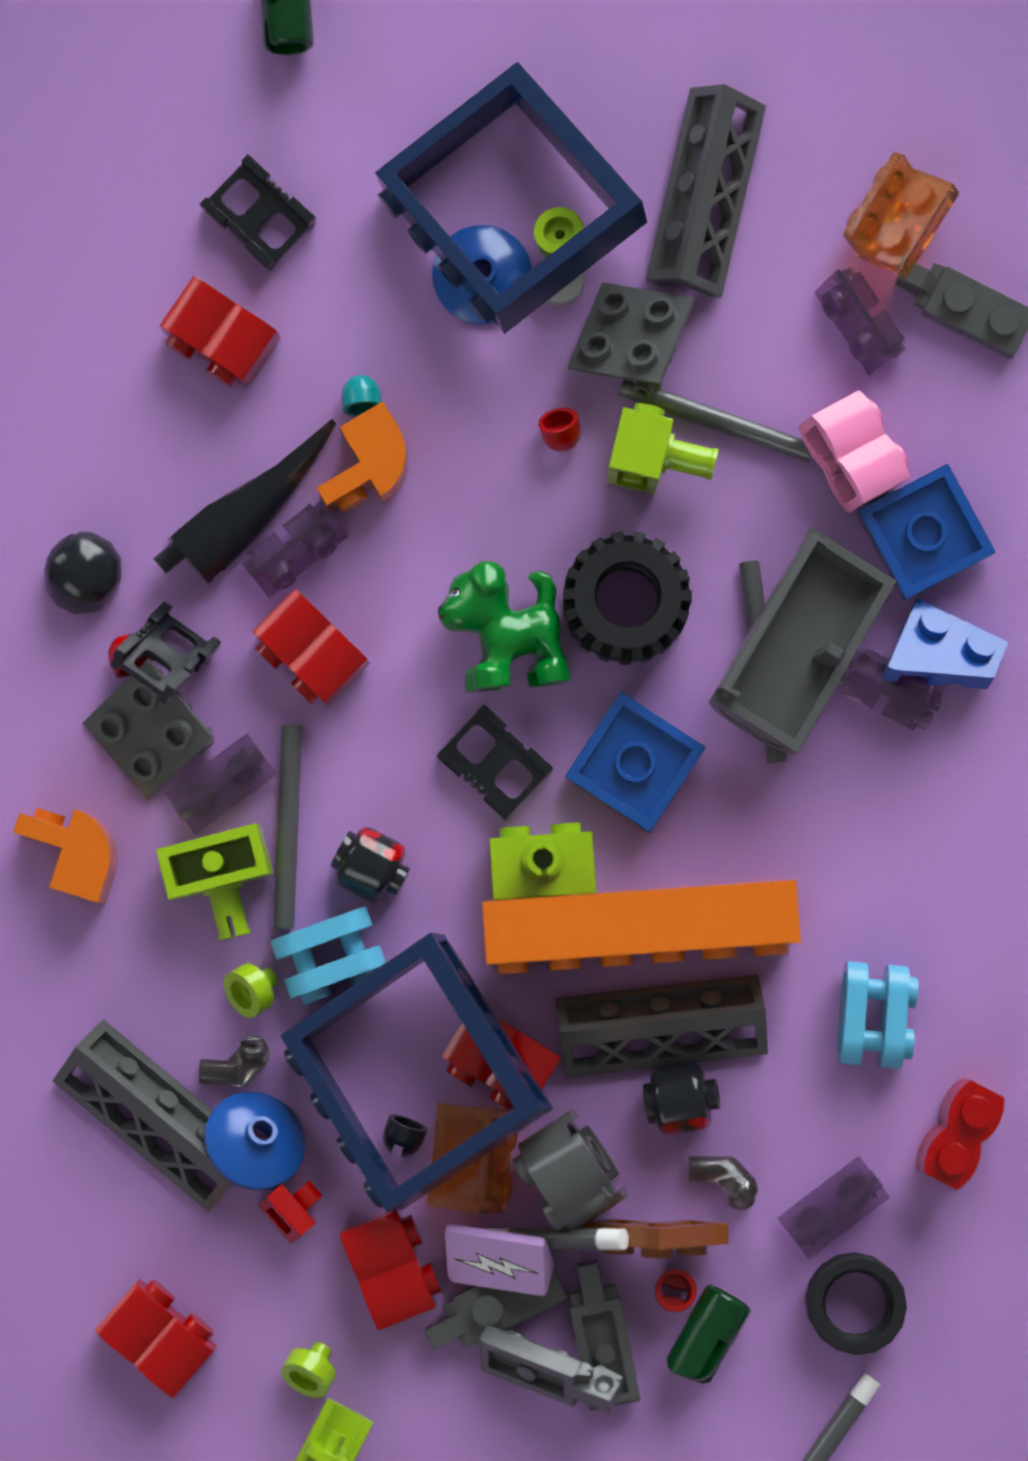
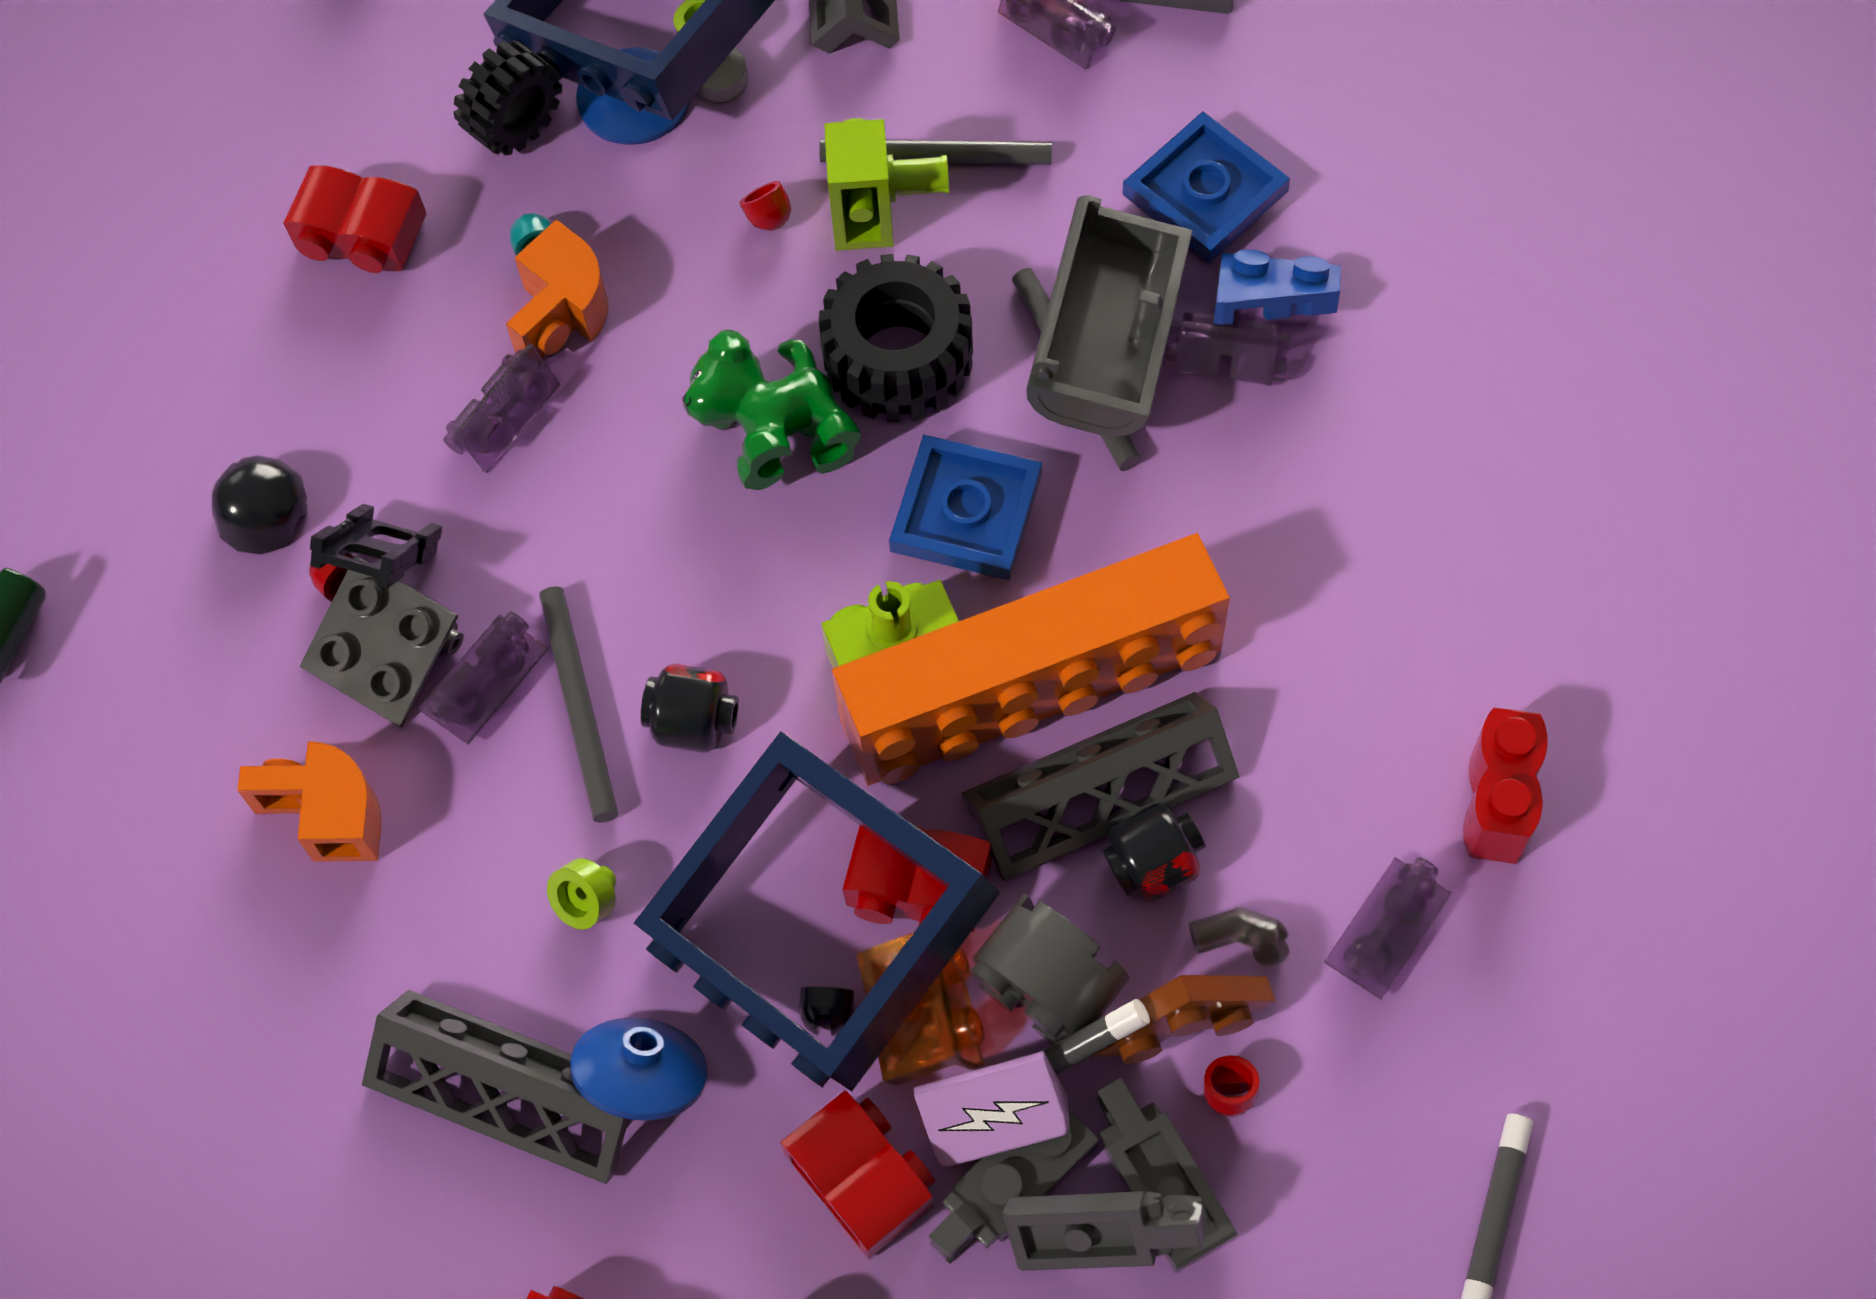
camera: 15 degrees left, 20 degrees down
(217, 869) = (502, 759): lime brick -> none
(234, 521) = (419, 397): black piece -> none
(240, 1067) = (598, 992): clear smoke arm -> none
(270, 201) = (379, 89): black piece -> none
(289, 1210) = (709, 1141): red tile -> none
(310, 648) = (548, 498): red brick -> none
(313, 981) = (648, 803): medium azure brick -> none
(374, 264) = (507, 97): none -> black tyre
(483, 773) = (793, 574): black piece -> none
(631, 335) = (814, 88): dark grey hinge -> none
(707, 1335) = (1293, 1125): dark green arm -> none
(854, 451) = (1095, 127): bright pink brick -> none
(893, 1039) = (1368, 661): medium azure brick -> none
(894, 1311) = (1493, 990): black tyre -> none

